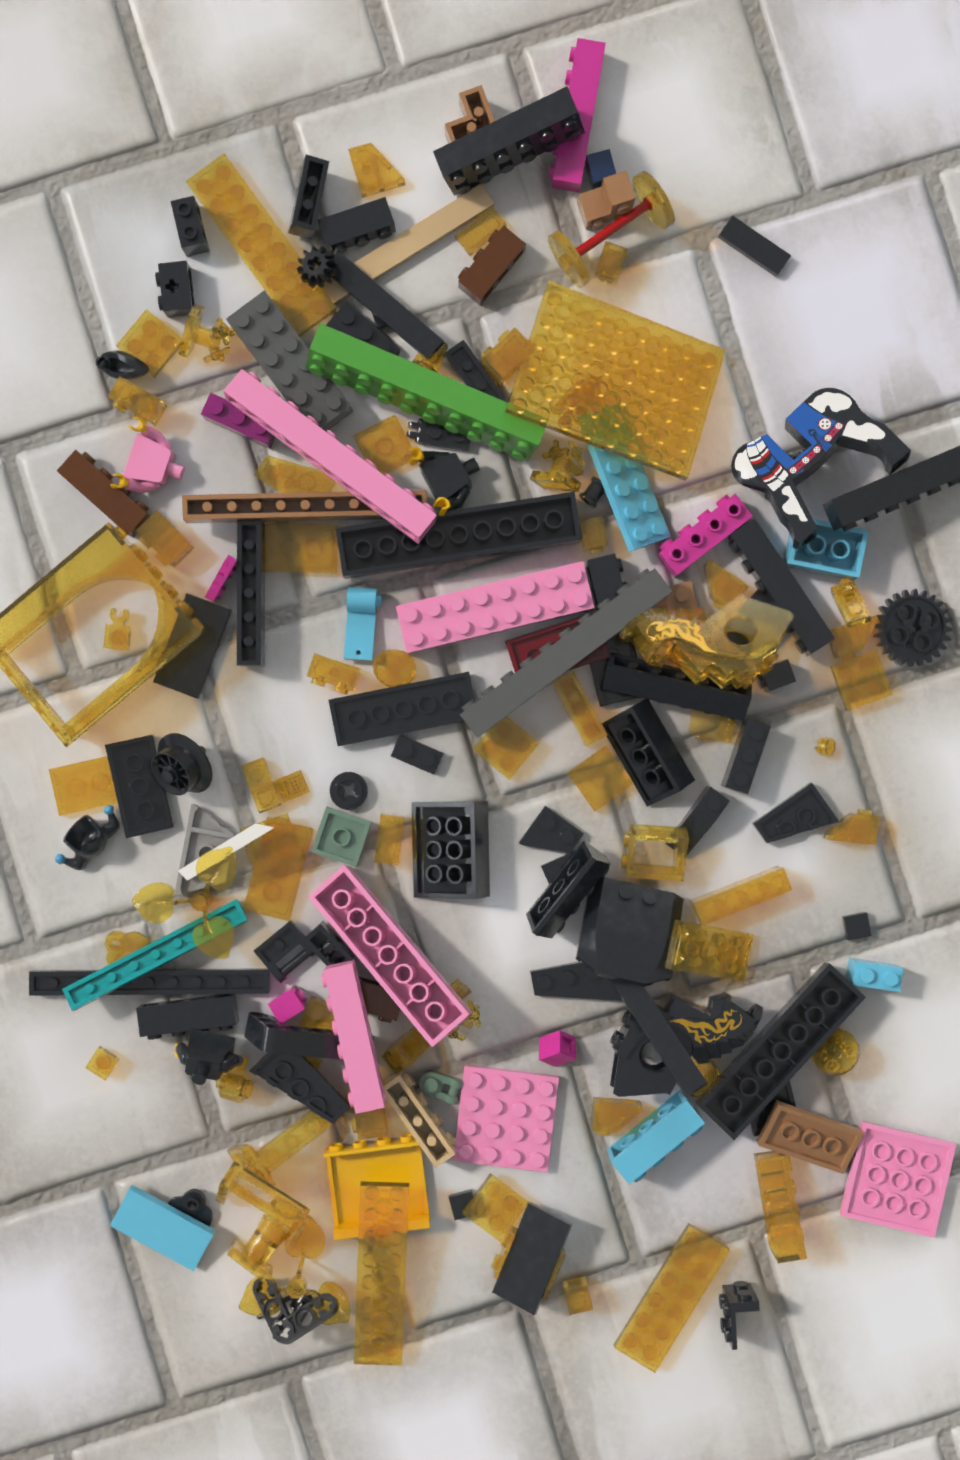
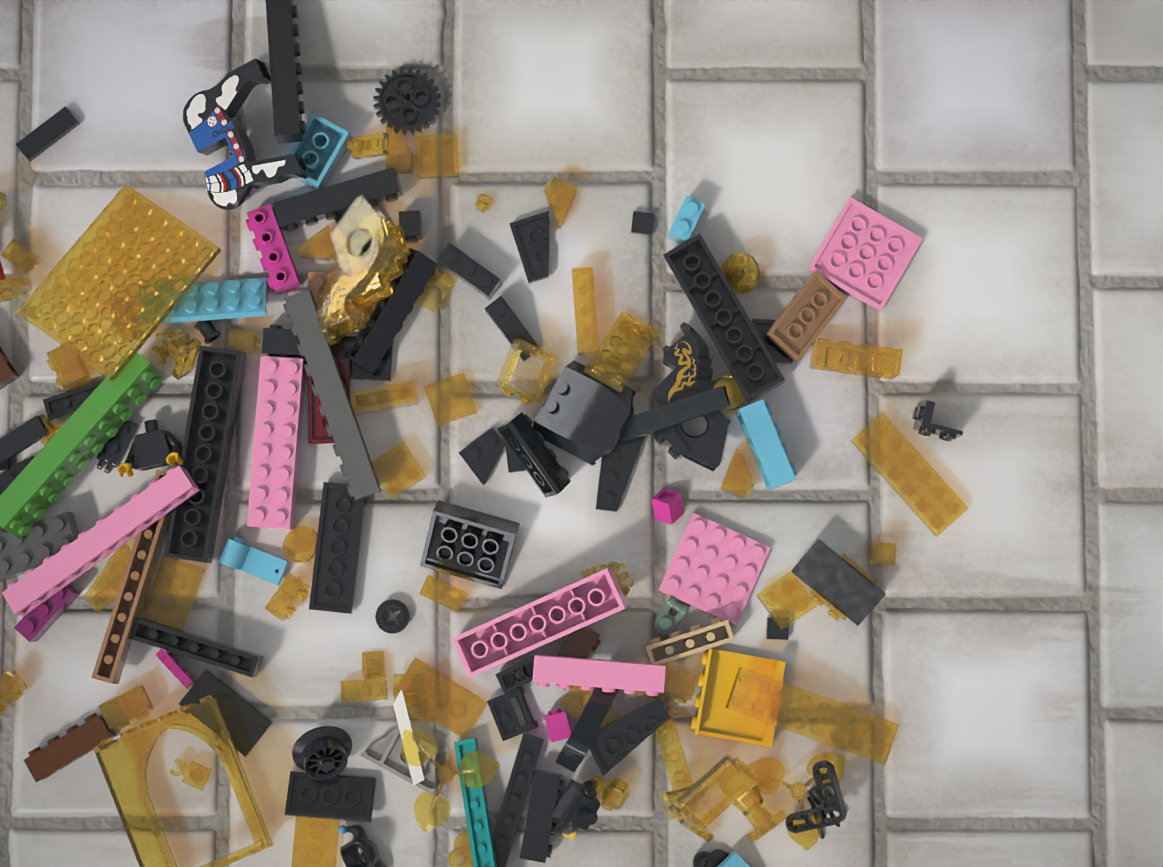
camera: 70 degrees left, 5 degrees down
(149, 461) = (55, 700): bright pink torso -> none
(341, 836) = (429, 634): sand green plate -> none
(384, 445) = (108, 492): clear yellow plate -> none
(405, 1050) = (627, 633): clear yellow slope -> none
(417, 754) = (380, 548): black plate -> none
(647, 752) = (440, 352): black slope -> none

